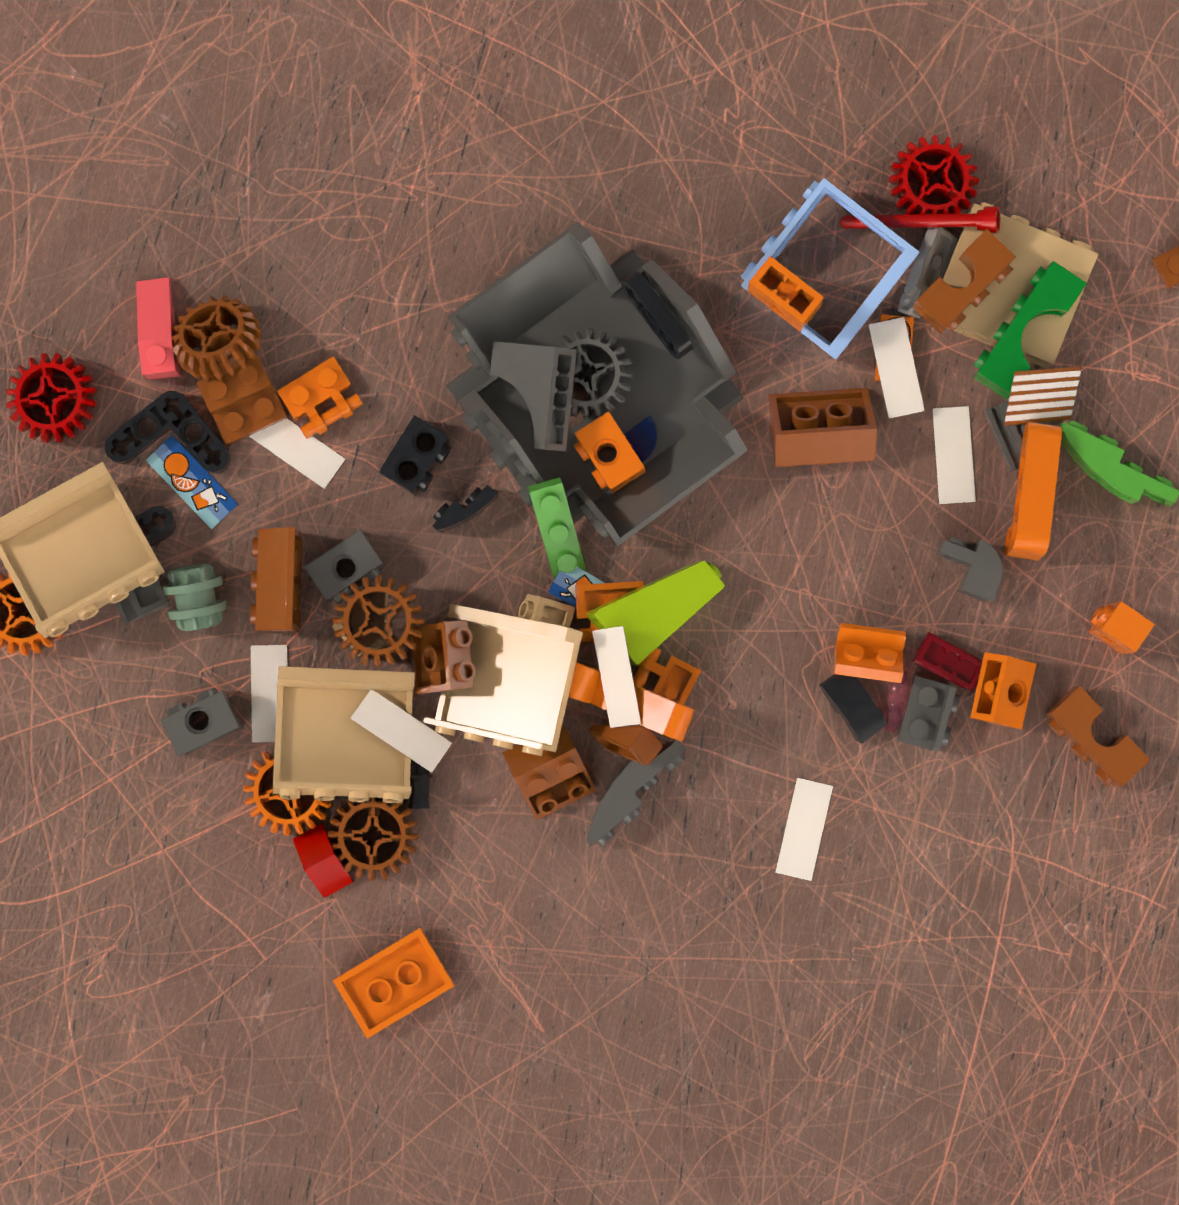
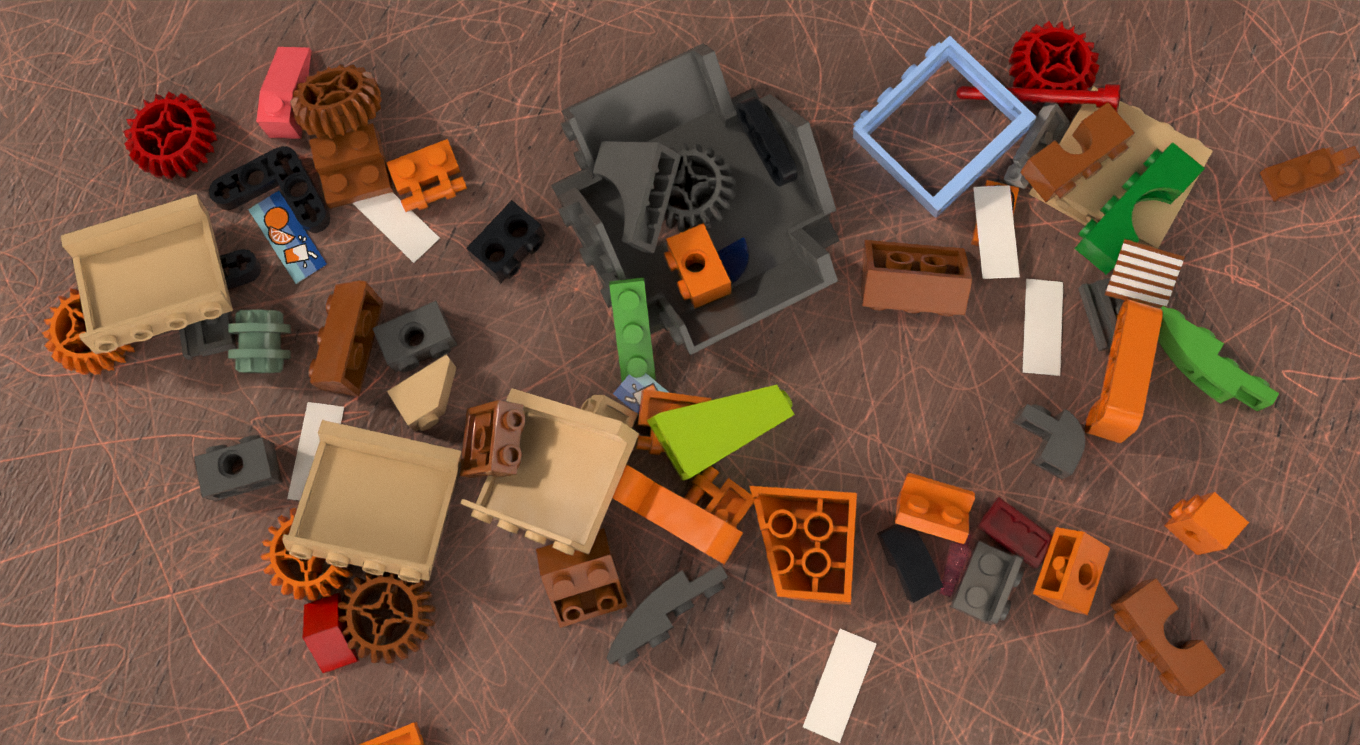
camera: 15 degrees right, 10 degrees down
(361, 597) = (420, 365): dark orange gear -> none
(401, 730) = (436, 509): white sticker -> none
(419, 785) = (447, 559): black axle -> none
(454, 515) = (533, 305): black slope -> none
(616, 677) = (666, 486): white sticker -> none
(630, 742) = (668, 558): dark orange slope -> none
(756, 704) = (808, 541): none -> orange wedge
(785, 293) = (897, 135): orange brick -> none

